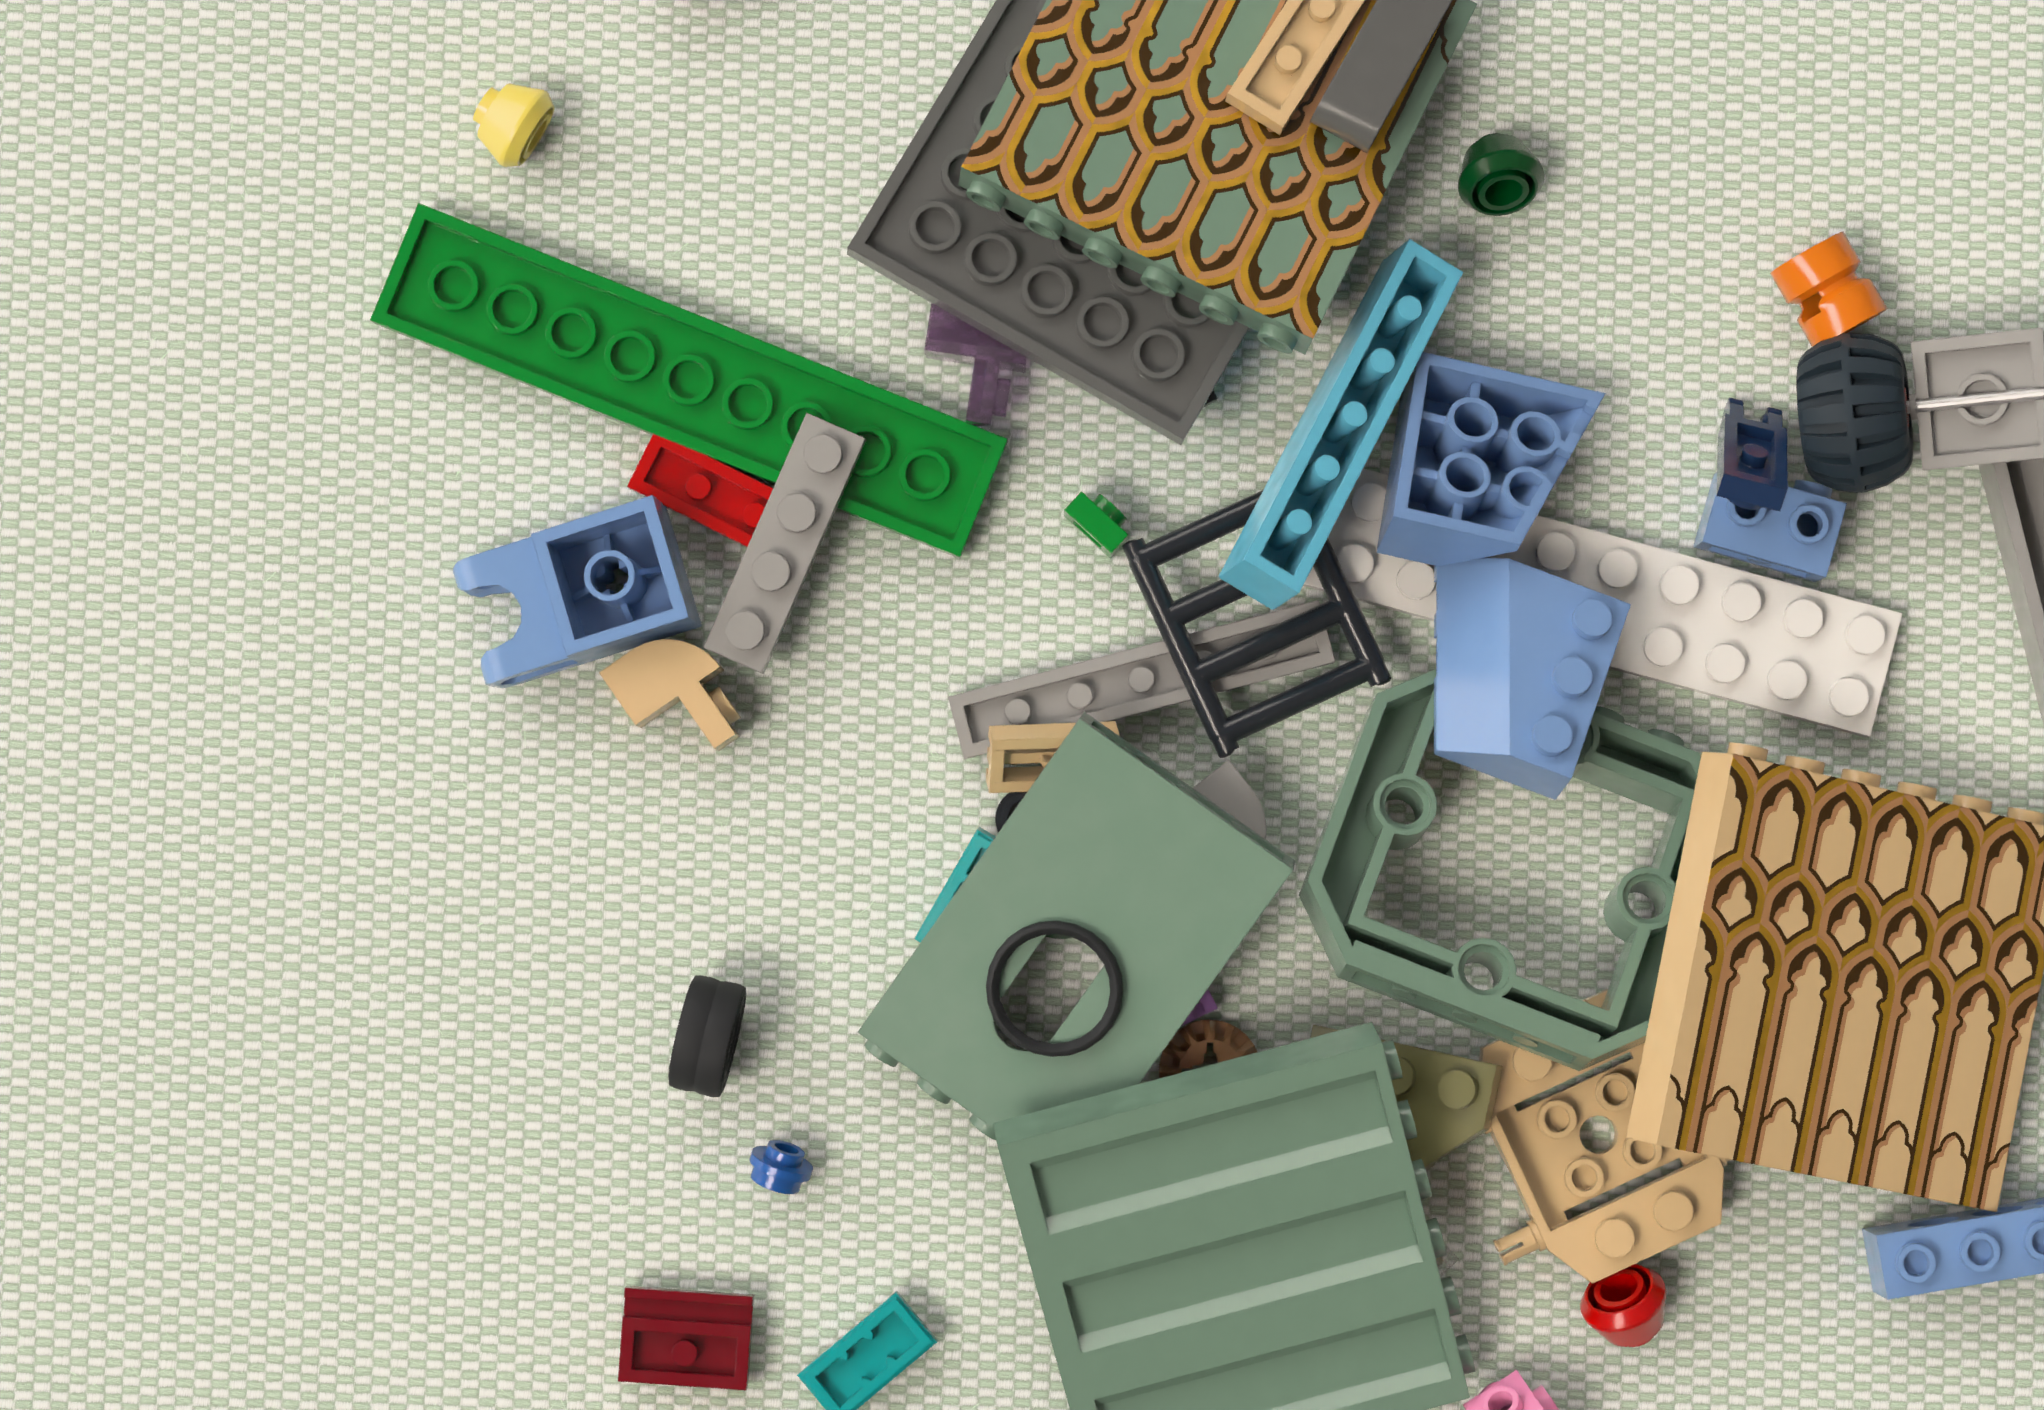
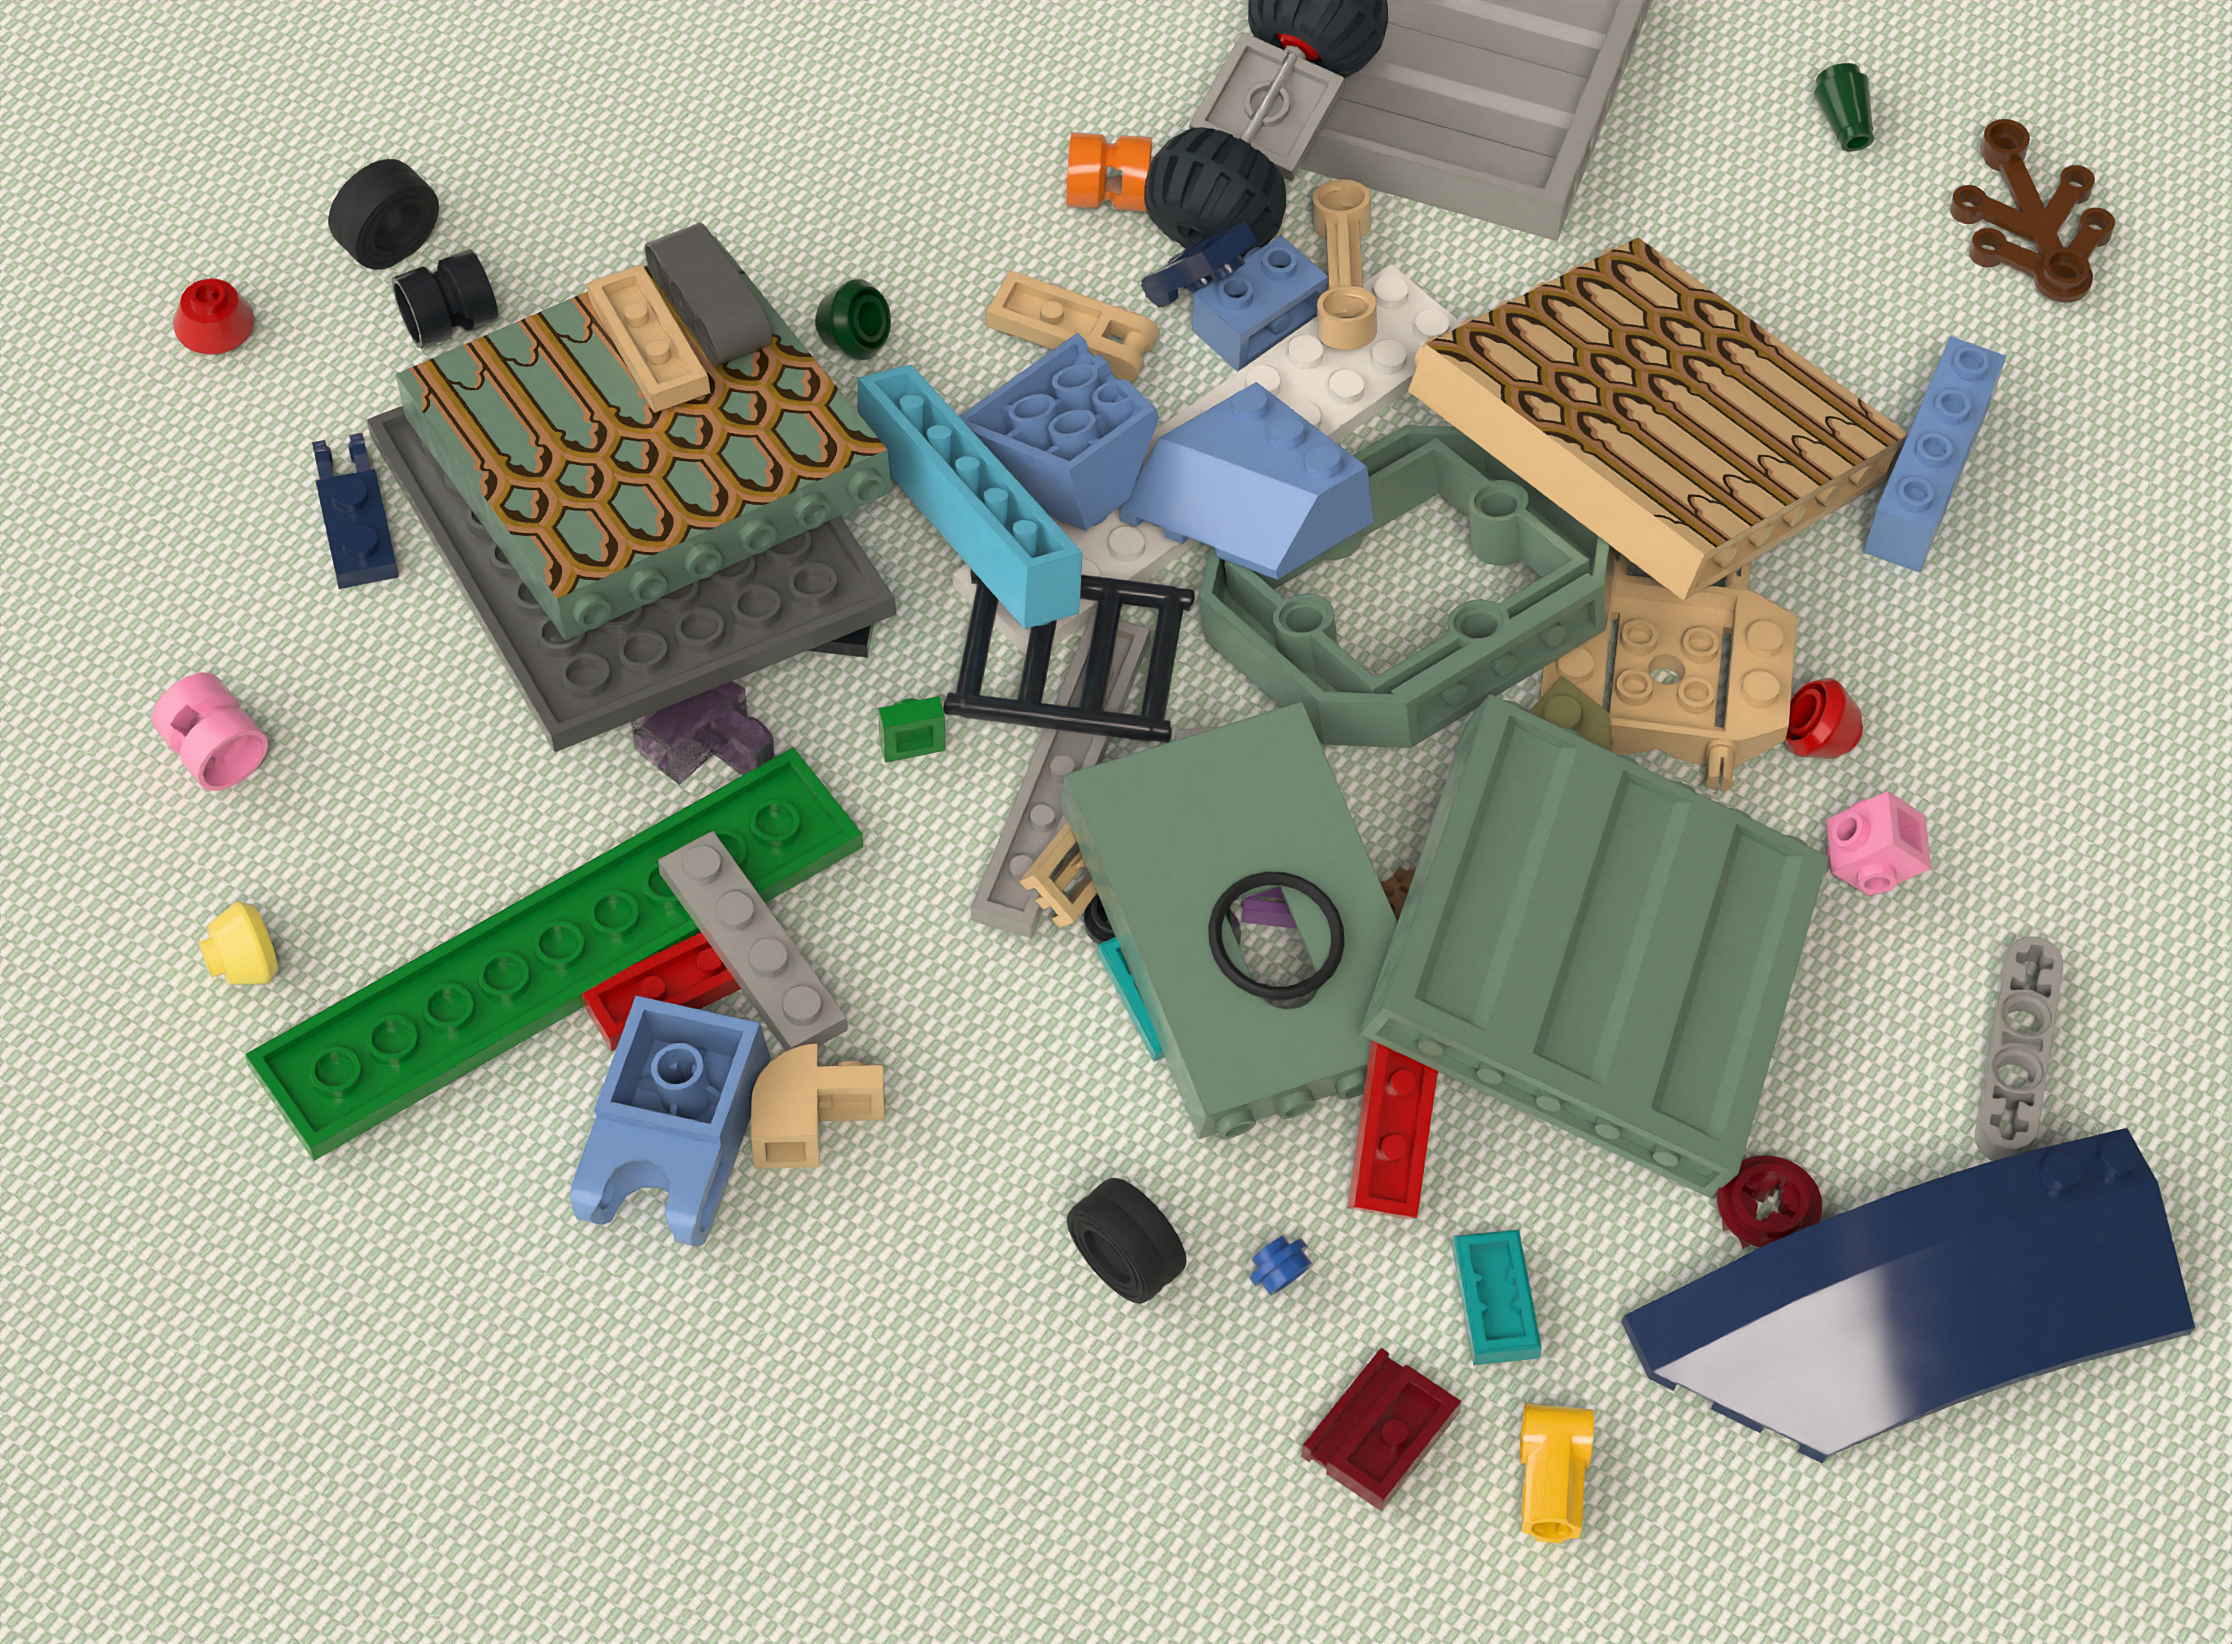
camera: 65 degrees left, 30 degrees down
(941, 1193) = (1392, 1134): none -> red plate
(1634, 368) = (1054, 314): none -> tan plate
(1861, 577) = (1342, 218): none -> tan piece

